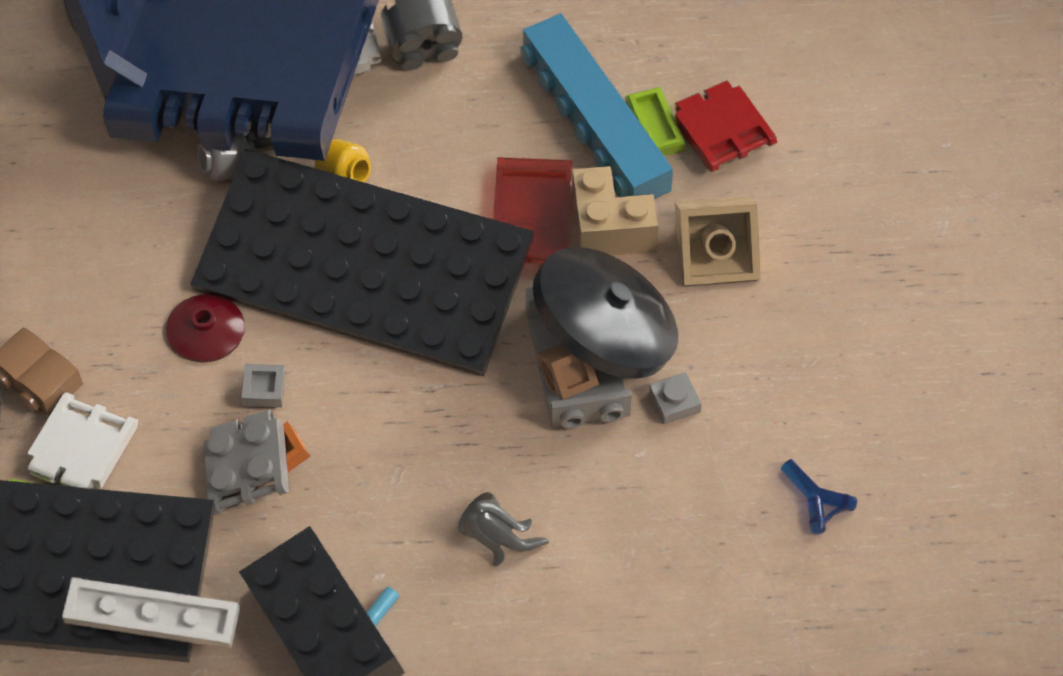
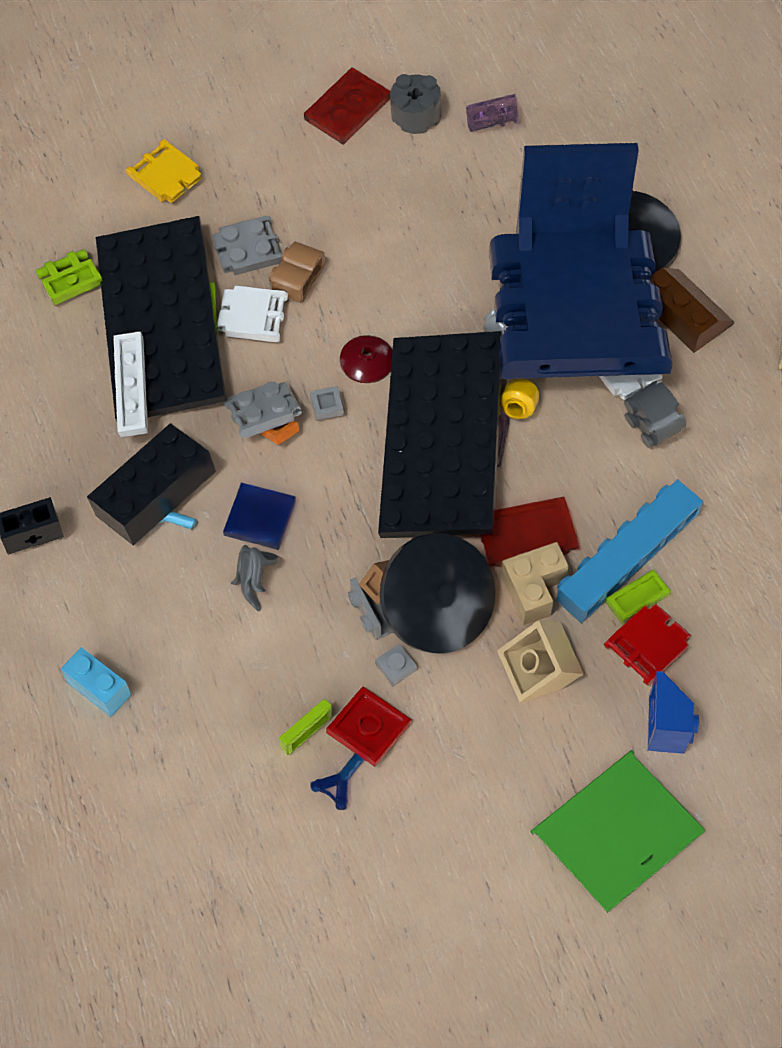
camera: 75 degrees right, 5 degrees up
(406, 508) = (259, 516): none -> clear blue tile
(739, 514) = (305, 727): none -> lime tile
(753, 446) = (368, 726): none -> red tile
(829, 123) = (670, 717): none -> blue slope
(944, 224) = (616, 829): none -> bright green piece

